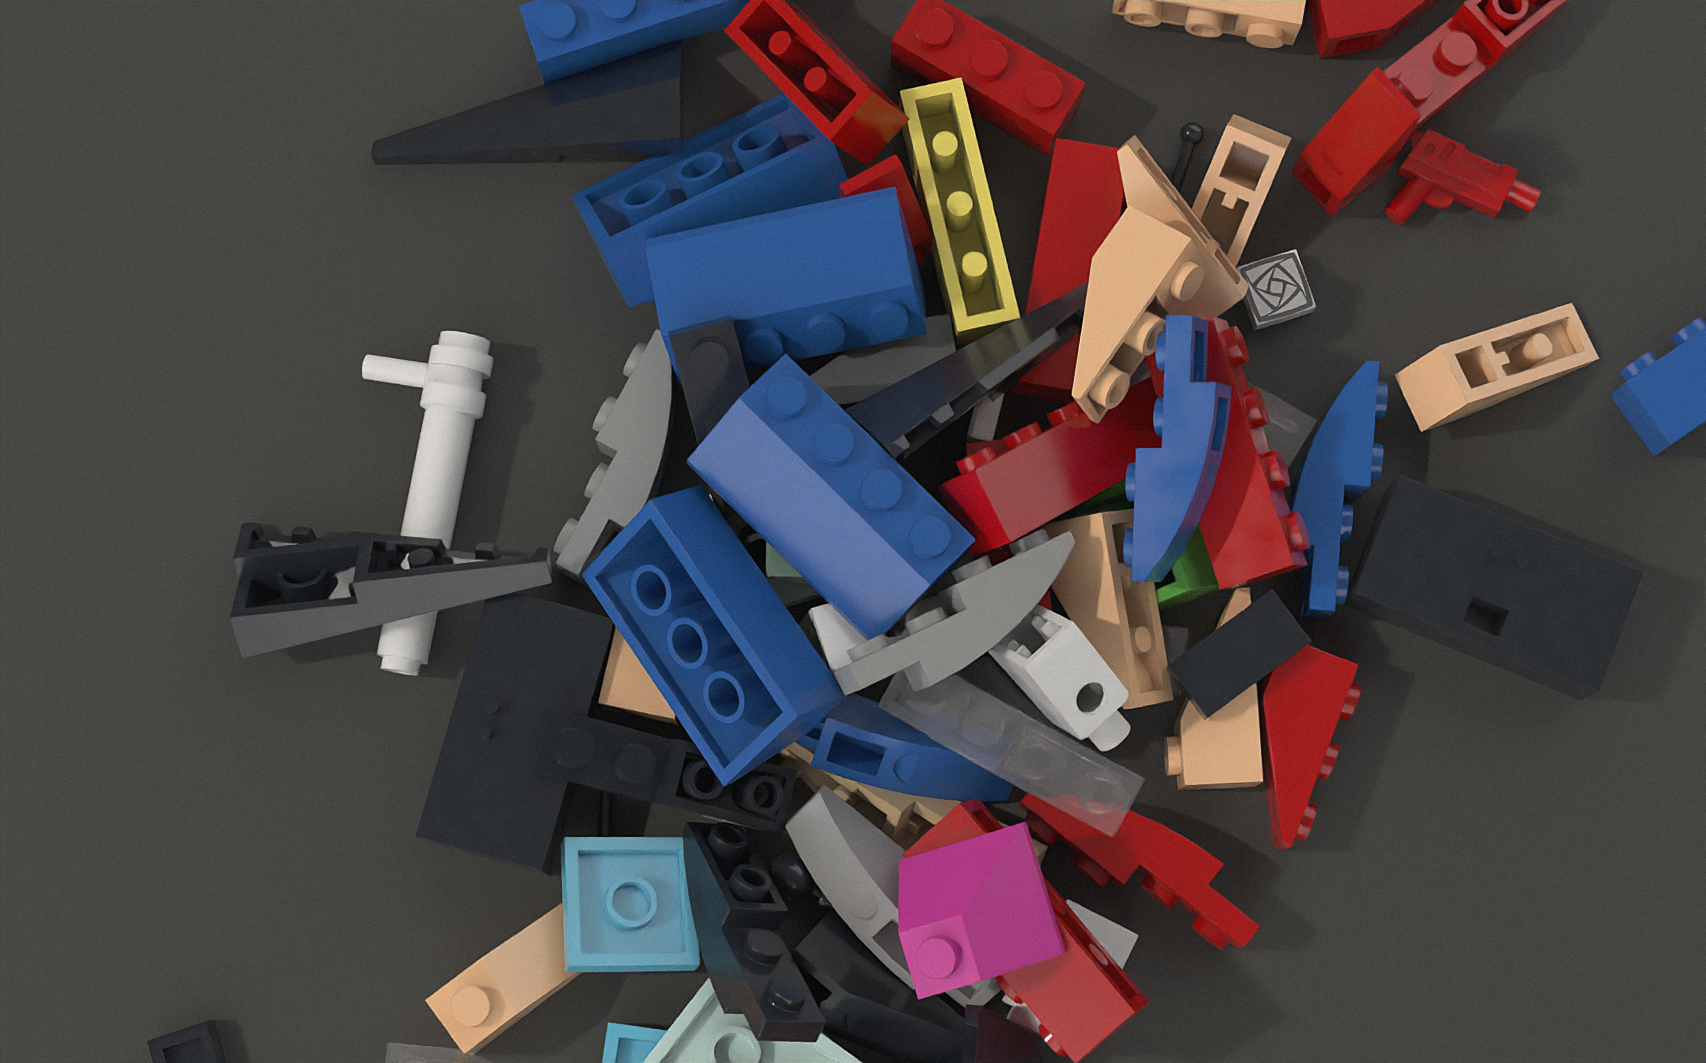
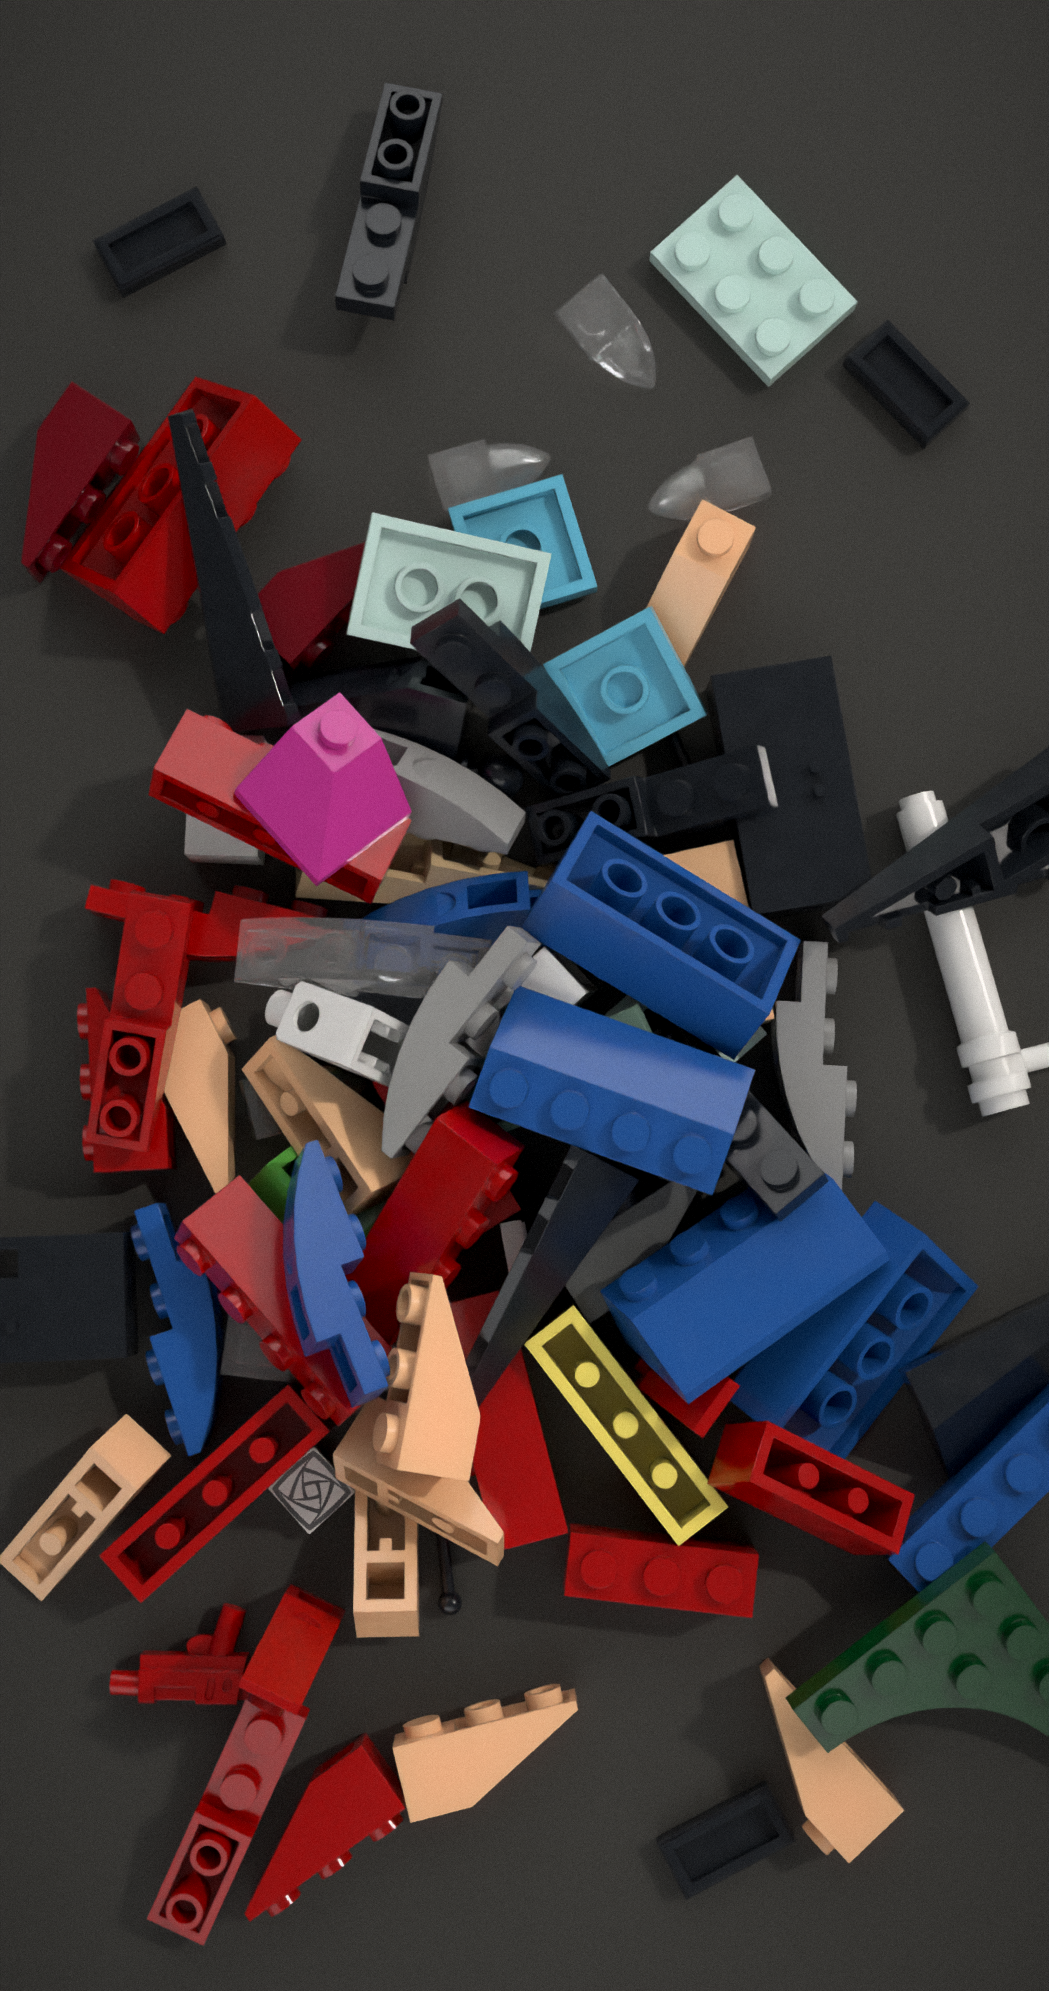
camera: 155 degrees right, 5 degrees up
(1238, 654) = (200, 1130): black tile -> none
(1251, 781) = (141, 1021): none -> red slope
(1368, 319) = (215, 1492): none -> red brick

